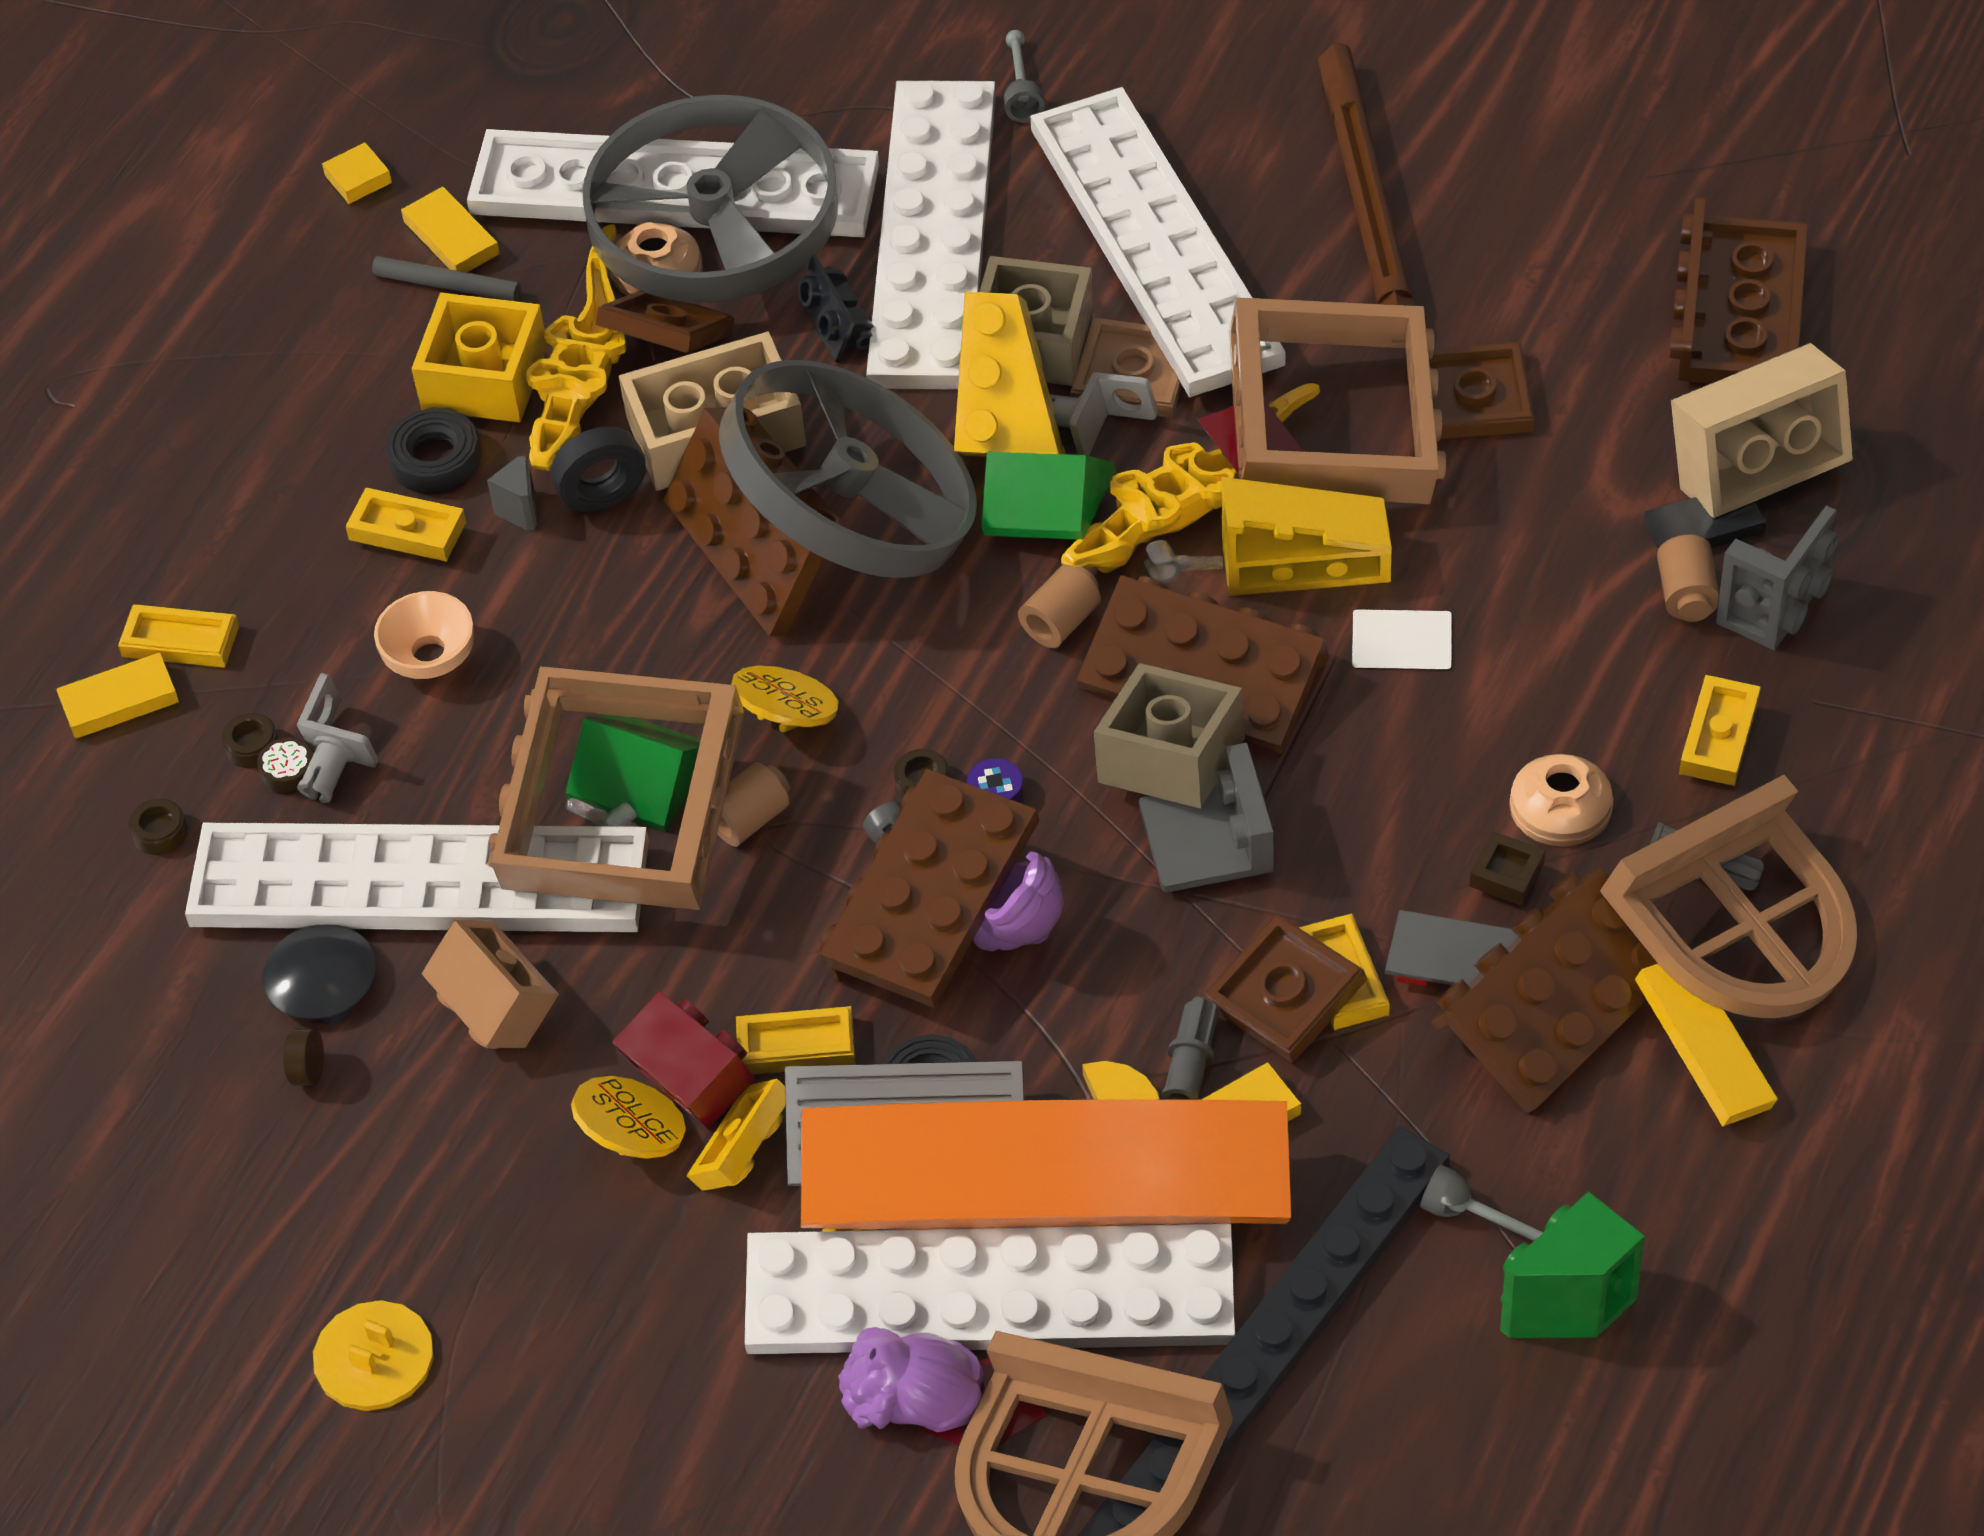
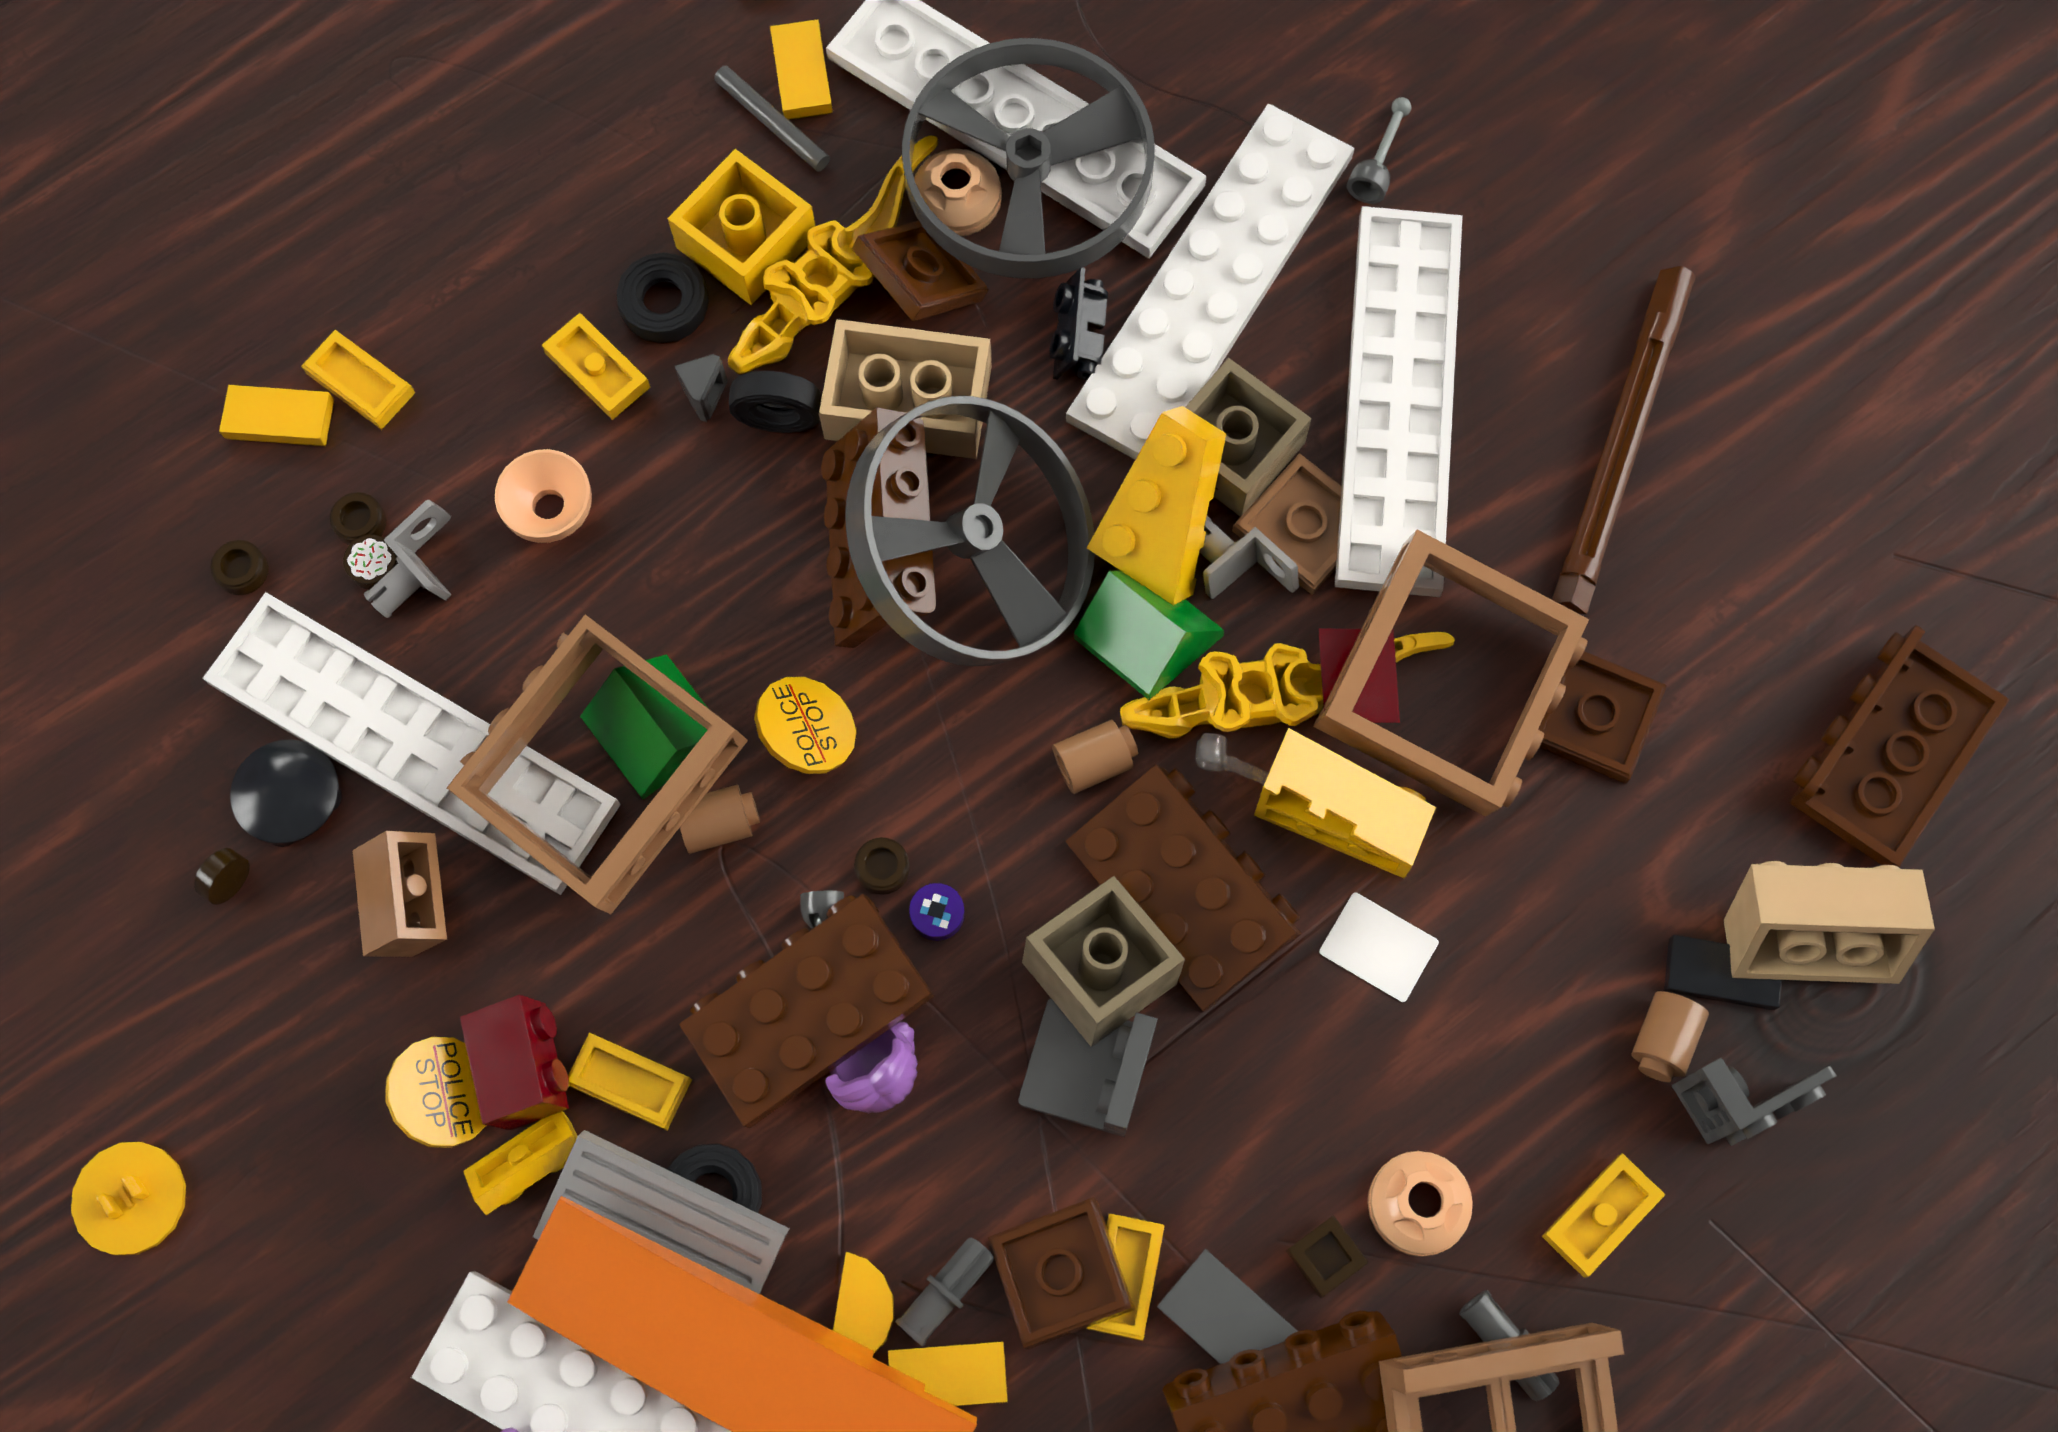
camera: 25 degrees right, 20 degrees up
(618, 817) = (602, 774): clear hand -> none

